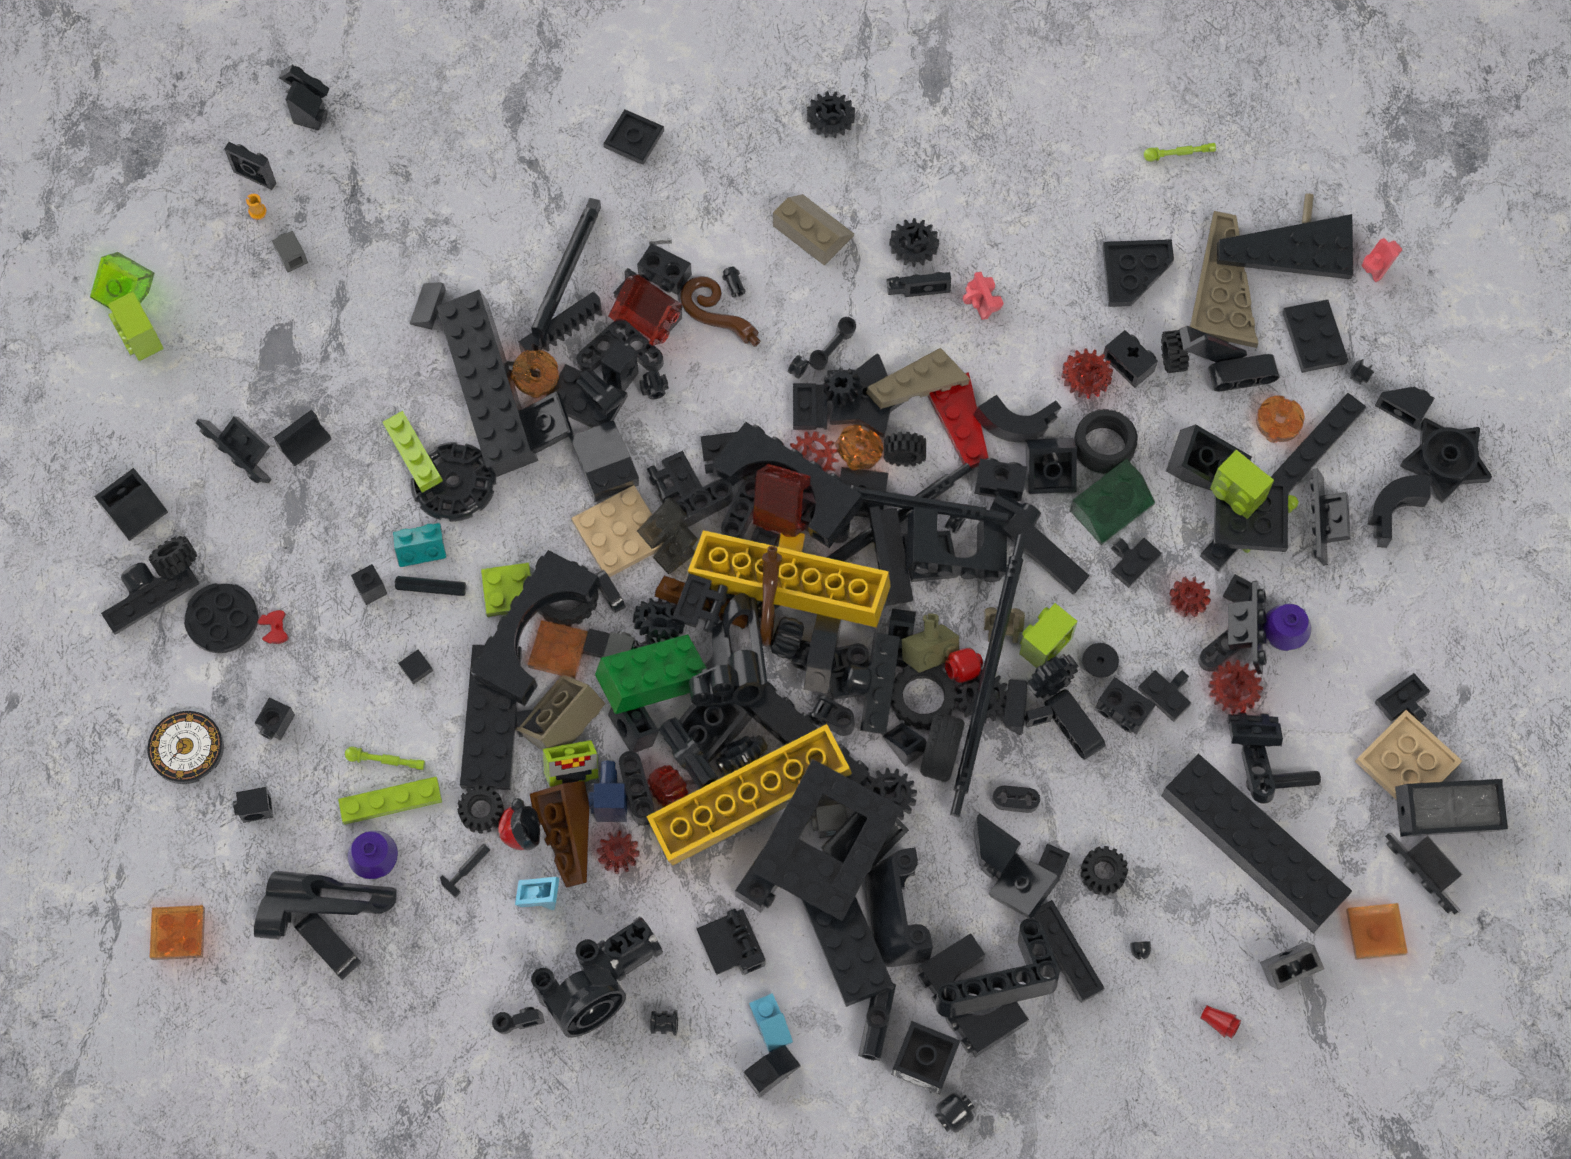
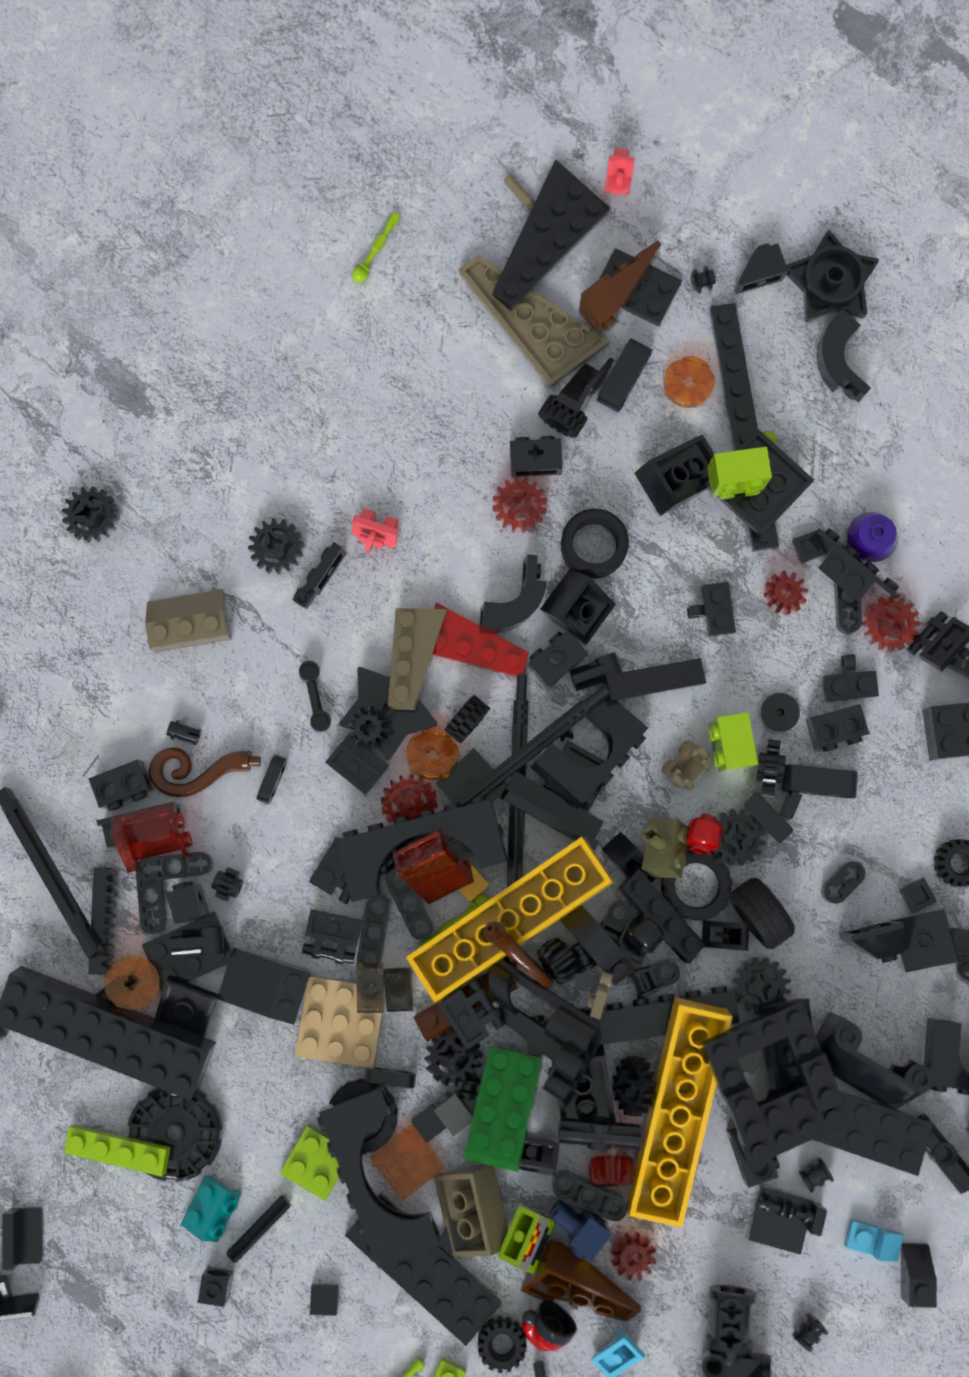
camera: 50 degrees left, 15 degrees up
(751, 359) = (272, 779): none -> black beam
(764, 536) = (449, 907): black tile -> none
(783, 678) = (597, 1002): none -> dark tan plate
(784, 939) = (816, 1175): none -> black bush
(798, 366) = (312, 743): black bush -> none
(988, 676) = (729, 820): black axle -> none
(1113, 502) = (652, 583): clear green slope -> none
(1134, 268) = (454, 381): black plate -> none
(1287, 314) = (609, 295): none -> reddish brown wedge
(1331, 517) = (808, 417): black bracket -> none

